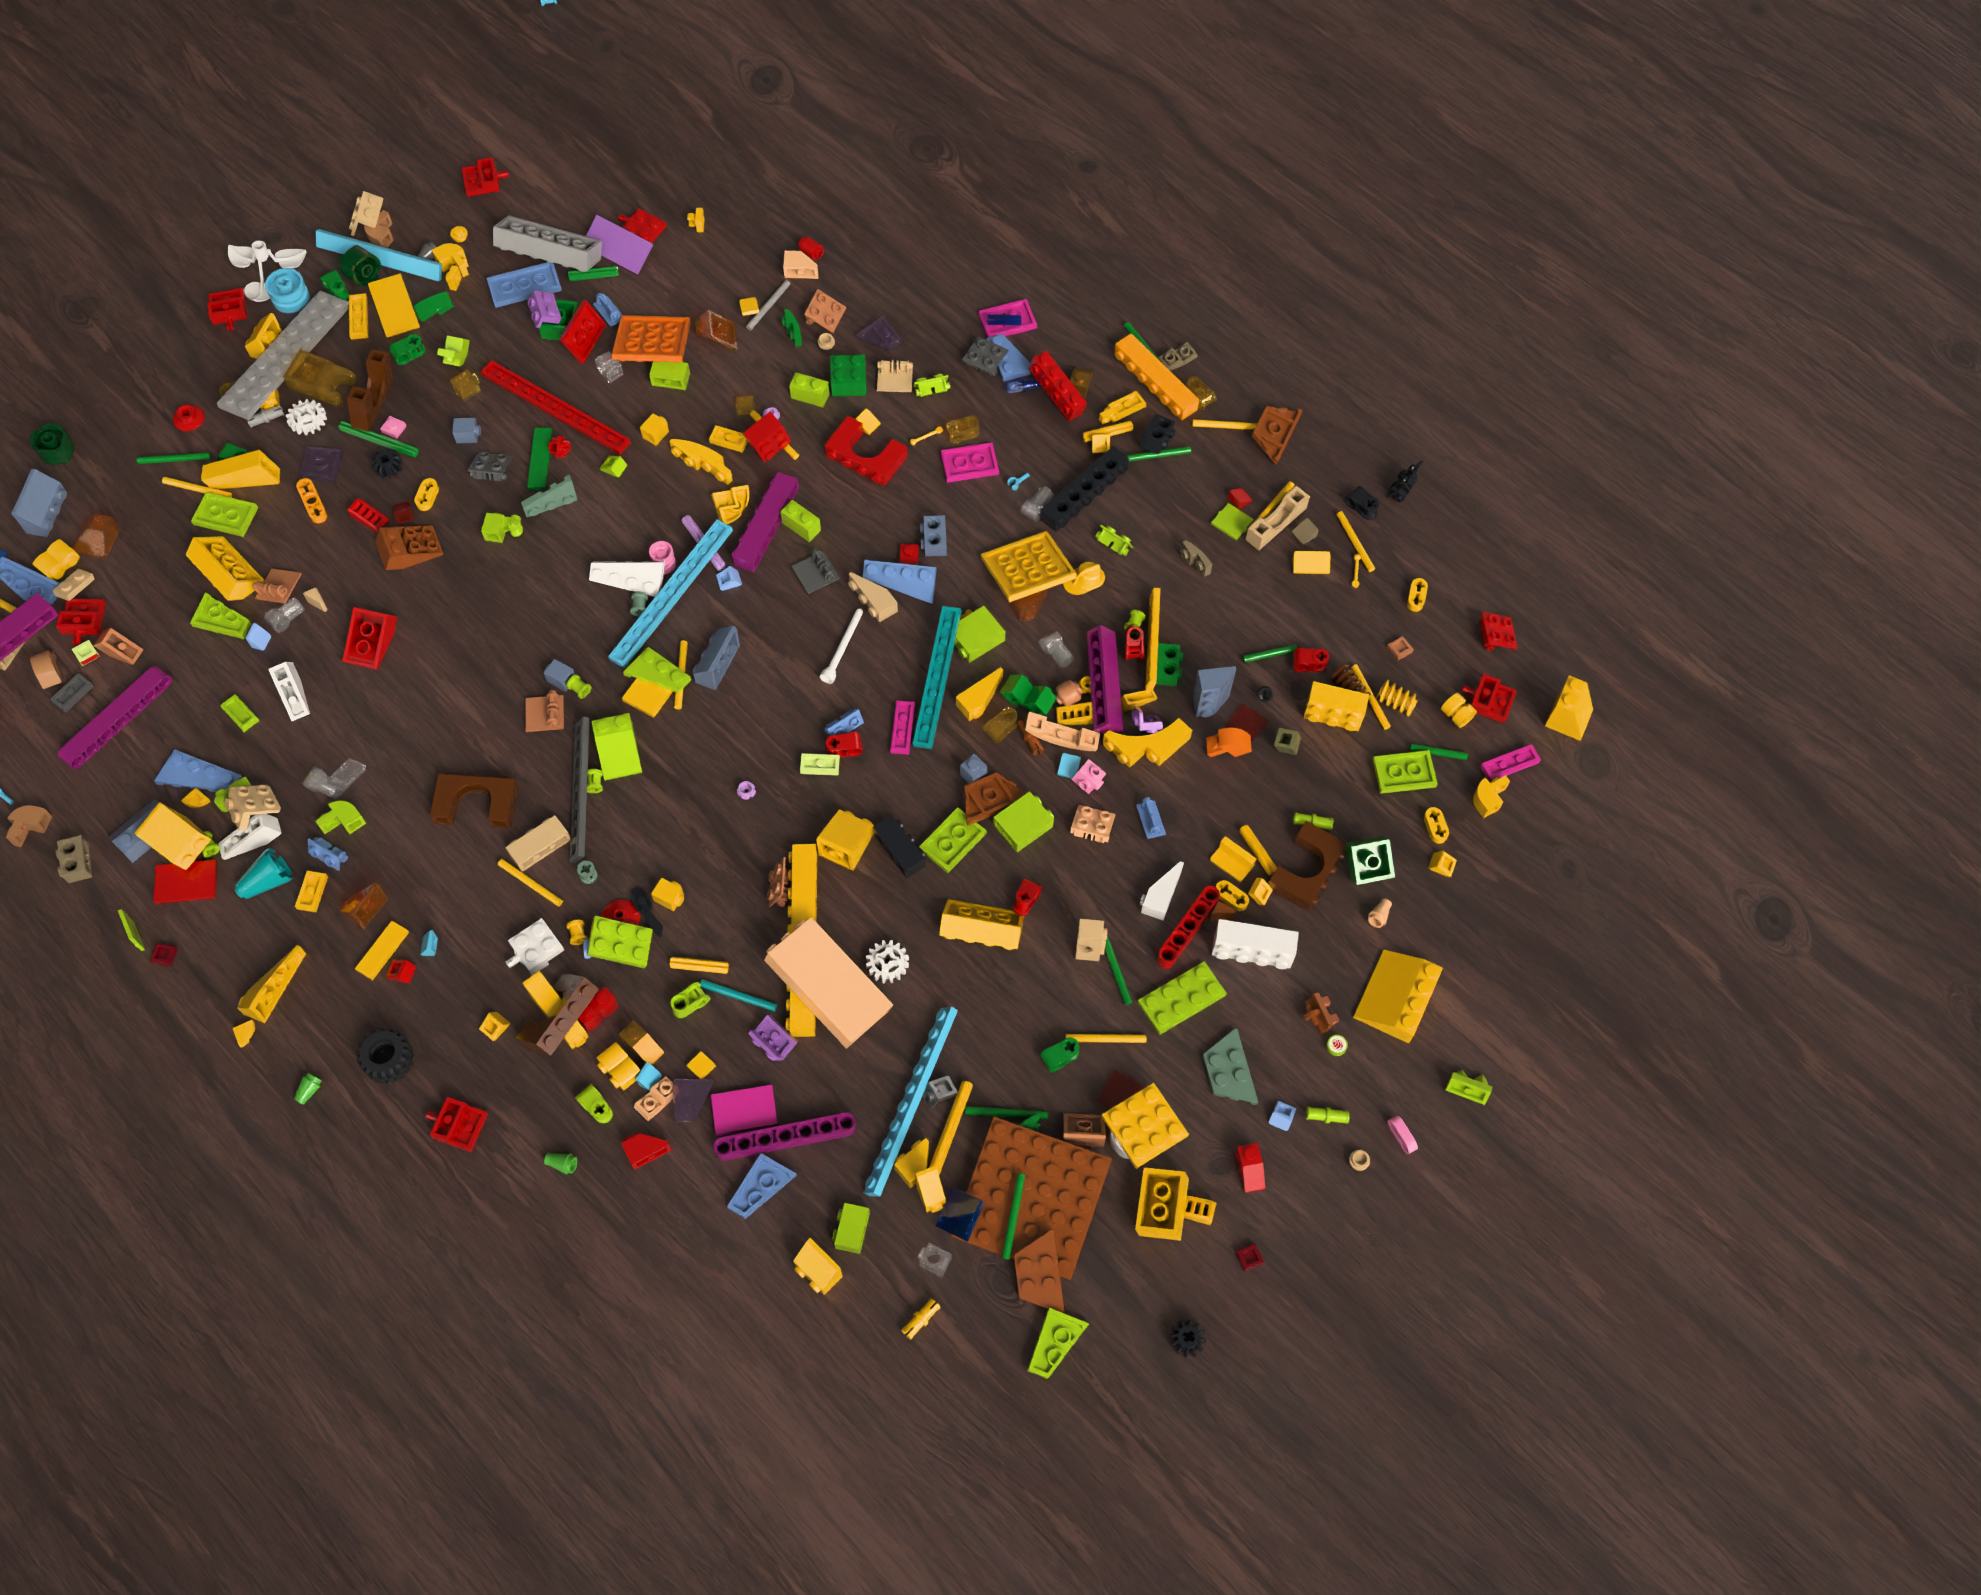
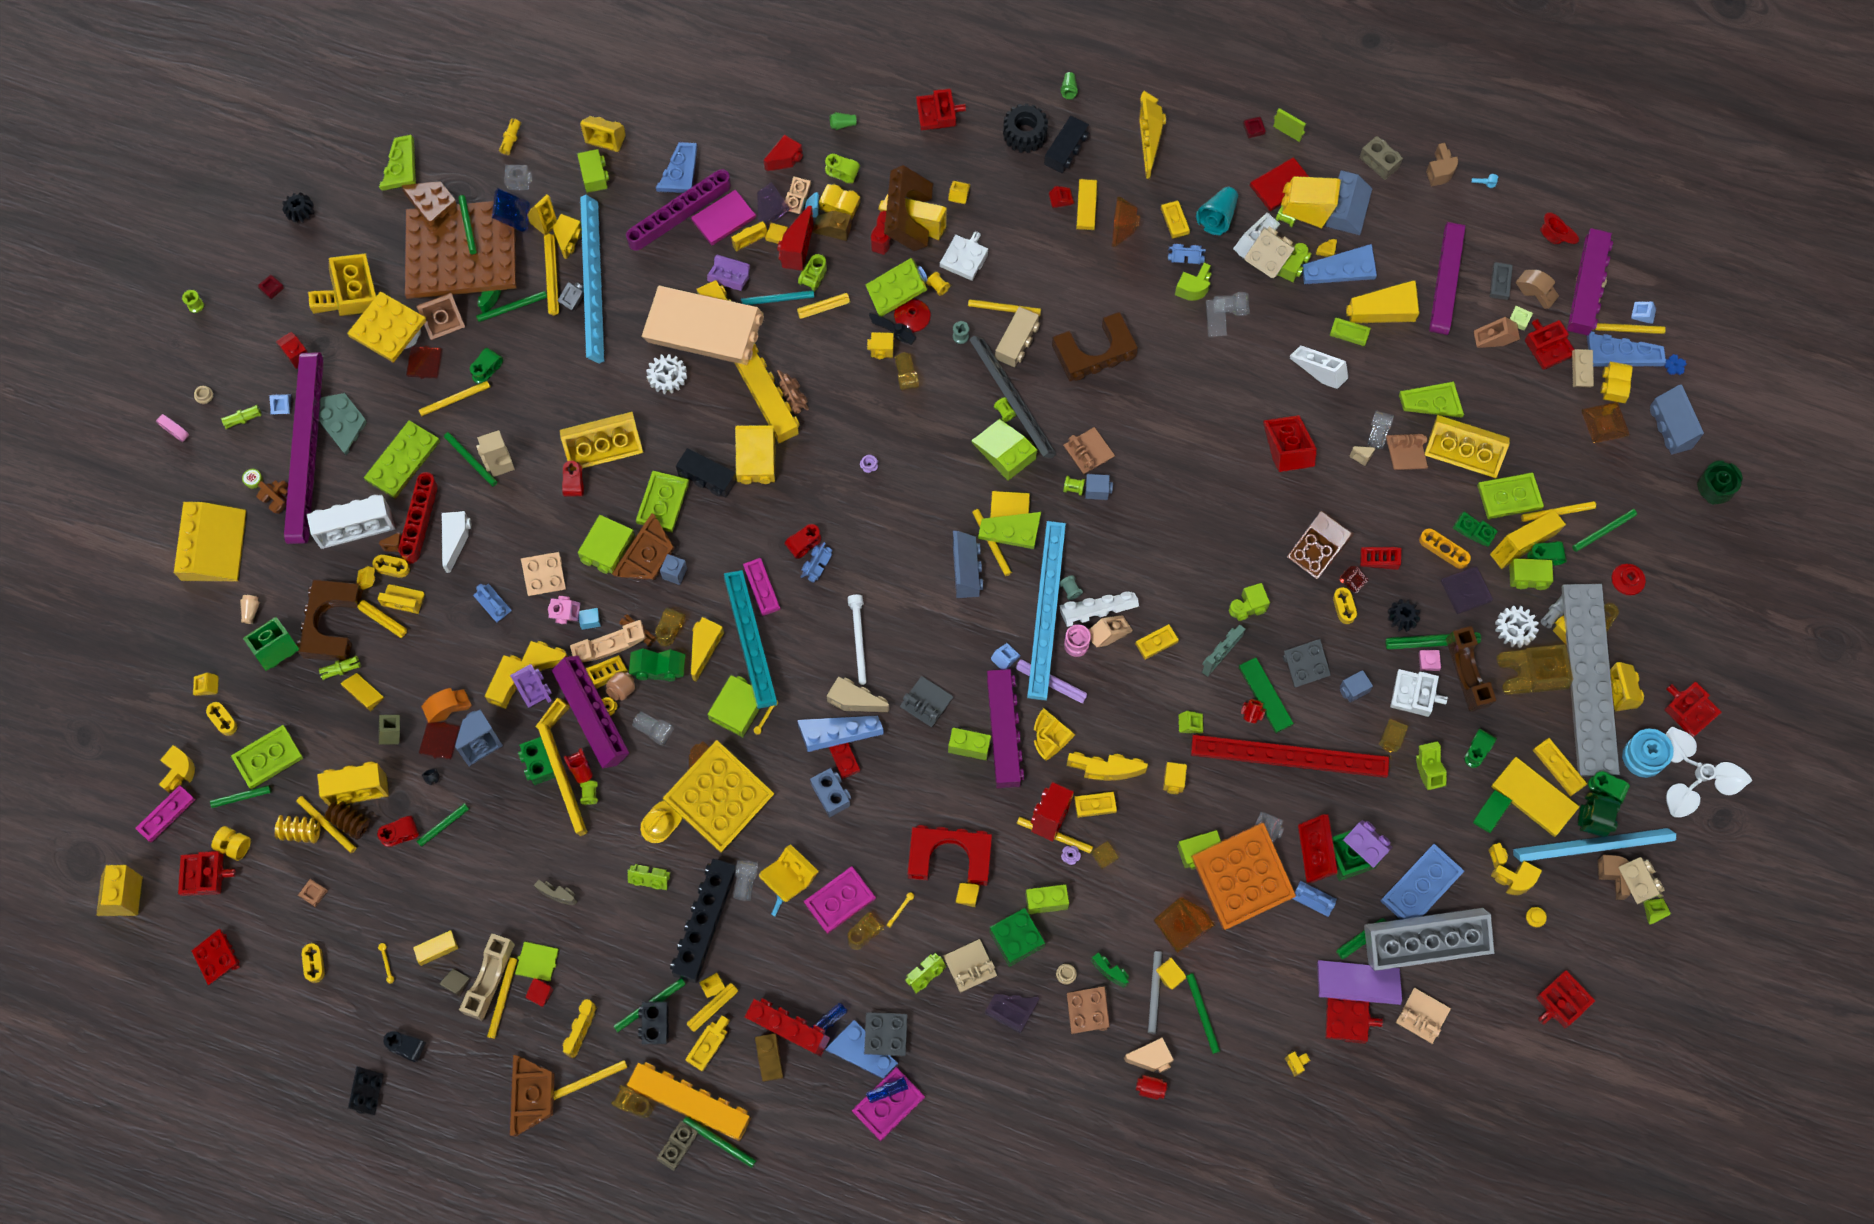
camera: 155 degrees right, 5 degrees up
(188, 716) = (1385, 305): none -> yellow slope
(258, 441) = (1531, 573): none -> lime brick
(258, 637) = (1386, 399): light blue slope -> none
(275, 504) = (1474, 530): none -> green slope
(356, 1020) = (1067, 144): none -> black brick
(423, 406) = (1416, 692): none -> white plate
(426, 252) = (1549, 874): dark grey cone -> none
(429, 944) = (1052, 224): medium azure slope -> none
(585, 211) = (1423, 1015): none -> light nougat hinge
(597, 532) = (1156, 641): none -> yellow plate
(632, 551) = (1109, 630): none -> light nougat slope
(662, 853) = (907, 376): none -> clear yellow piece
(686, 1034) = (796, 241): none -> red slope
(730, 1072) = (749, 236): none -> yellow plate
(742, 278) = (1203, 1013): none -> green bar
(820, 764) = (817, 514): yellowish green plate -> none
(1002, 489) = (789, 874): none -> yellow bracket
(1218, 457) = (579, 1028): none -> yellow hinge
(1273, 1049) = (303, 448): none -> magenta beam
(1300, 792) = (362, 691): none -> yellow slope
(1344, 1276) = (193, 302): none -> lime bush
(1354, 539) = (398, 998): yellow bar -> none
(1475, 1090) = (116, 494): lime tile -> none

